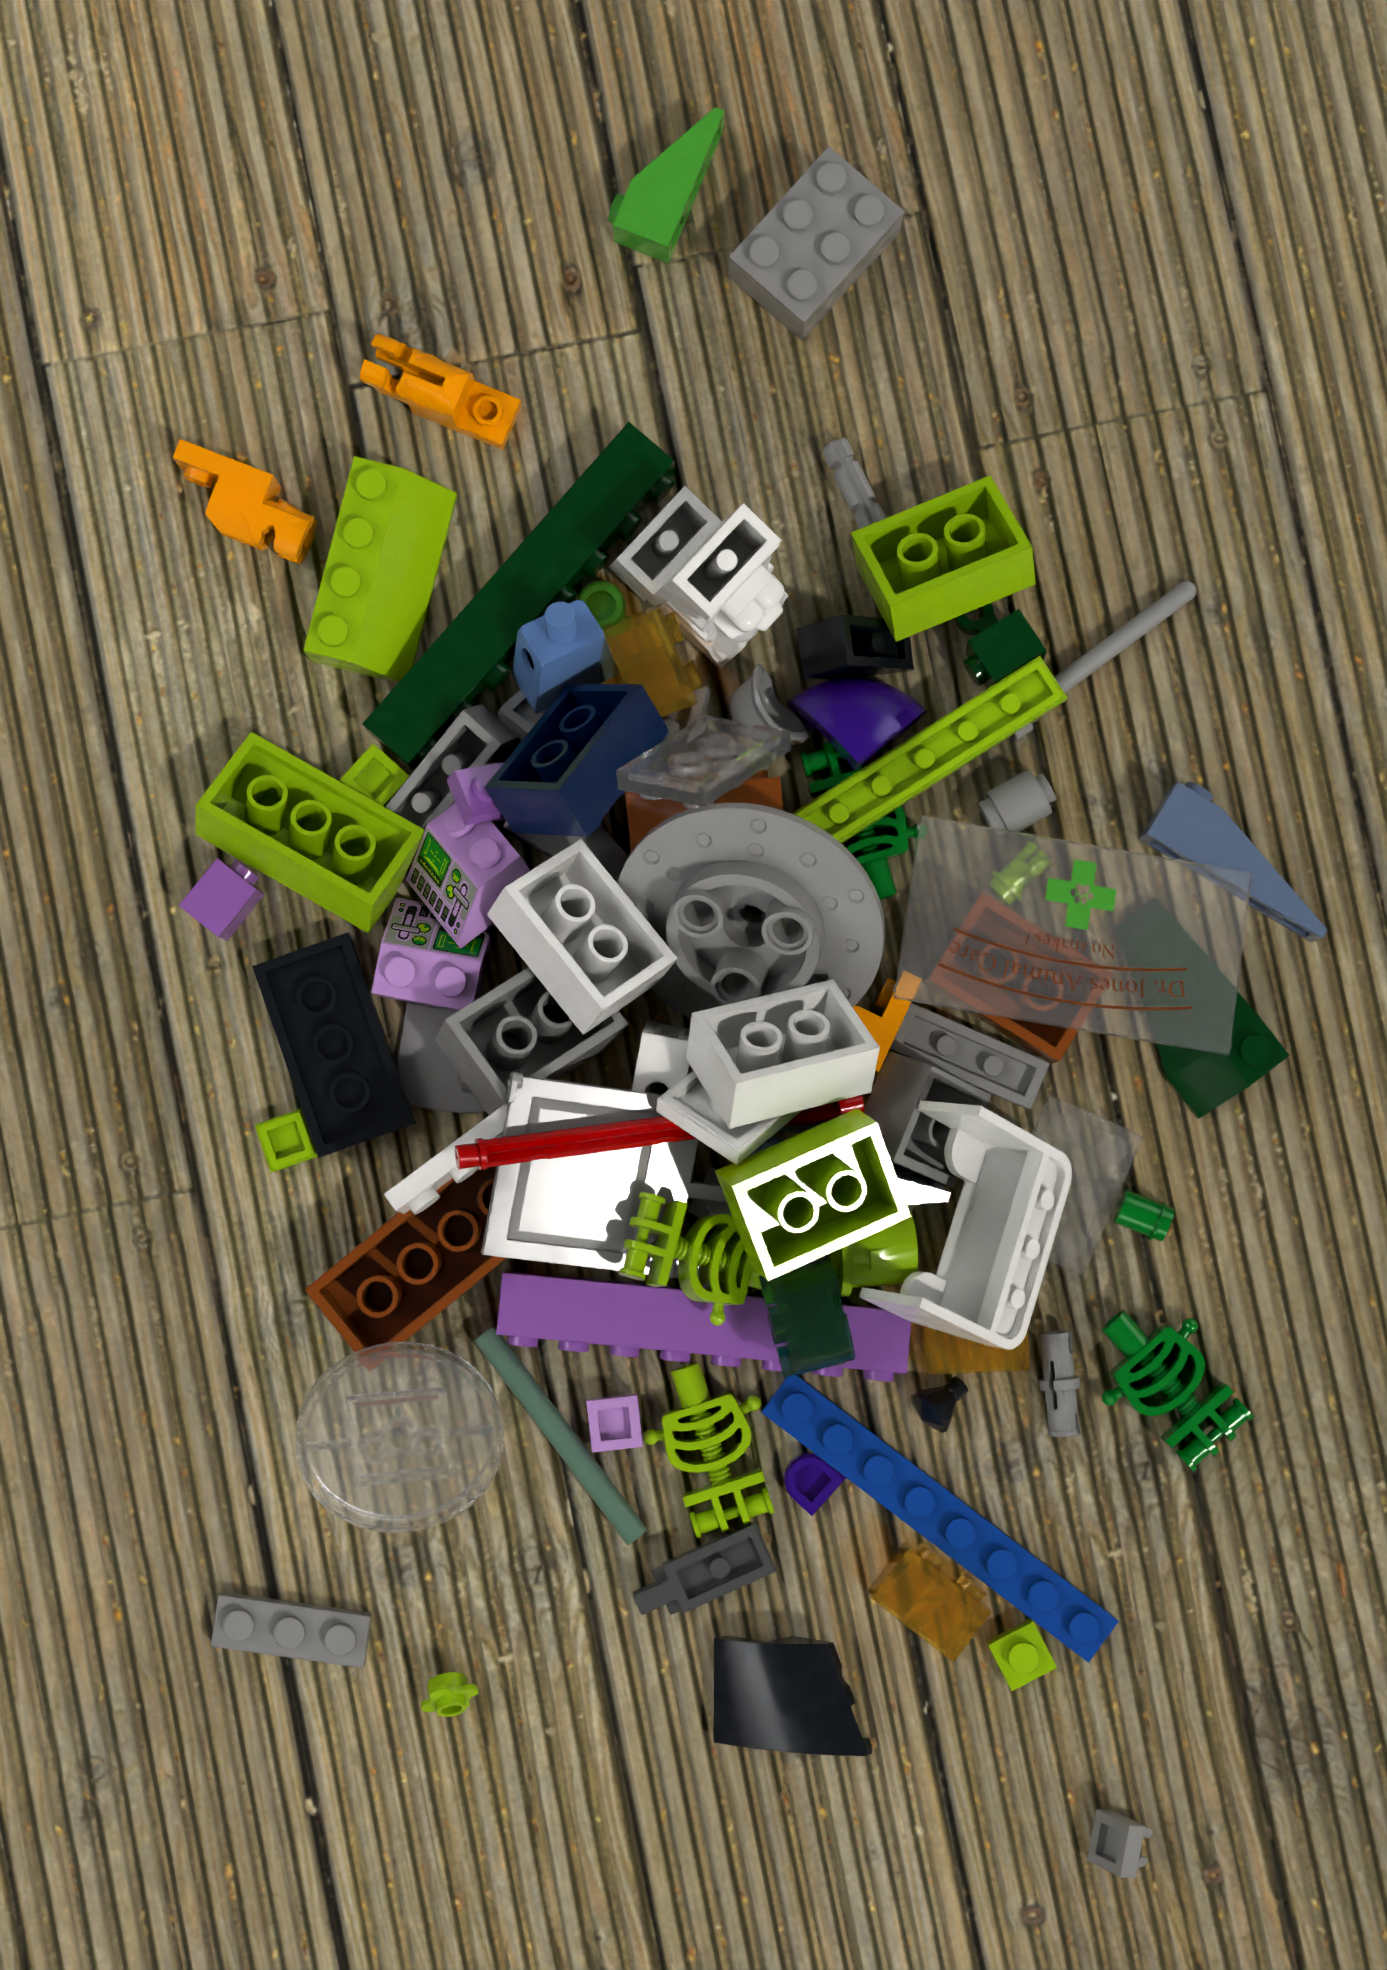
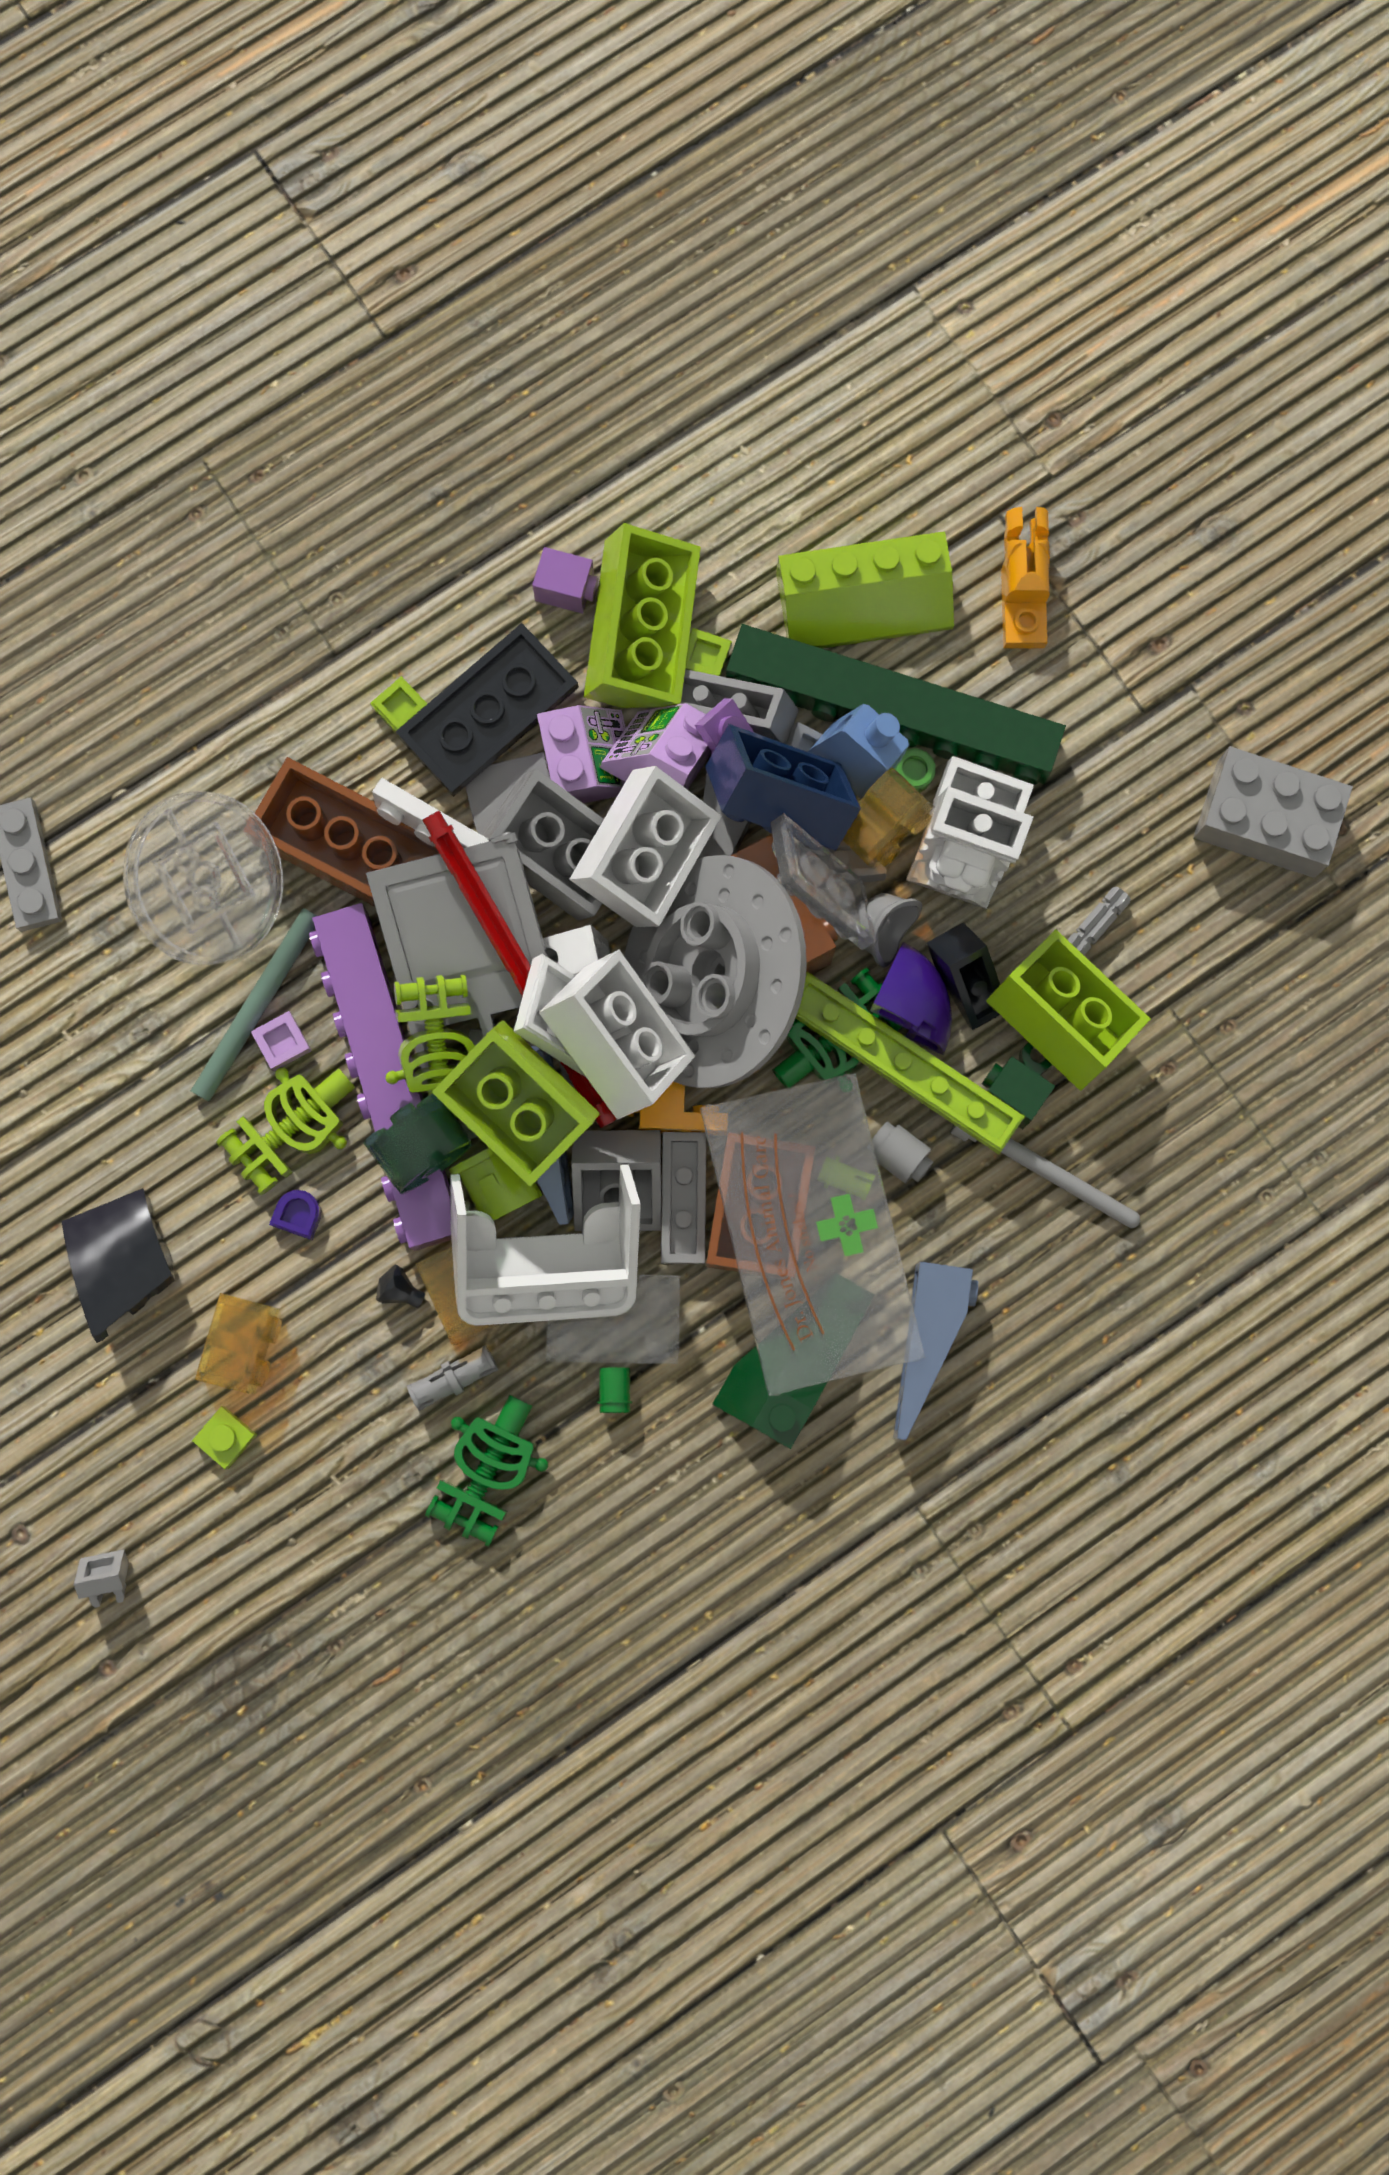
camera: 65 degrees right, 5 degrees down
(246, 504) = (874, 475): light orange plate -> none
(448, 1694) = (20, 1001): lime plate -> none
(663, 193) = (1259, 683): bright green slope -> none
(707, 1572) = (193, 1161): dark grey hinge -> none
(940, 1516) = (308, 1328): blue plate -> none

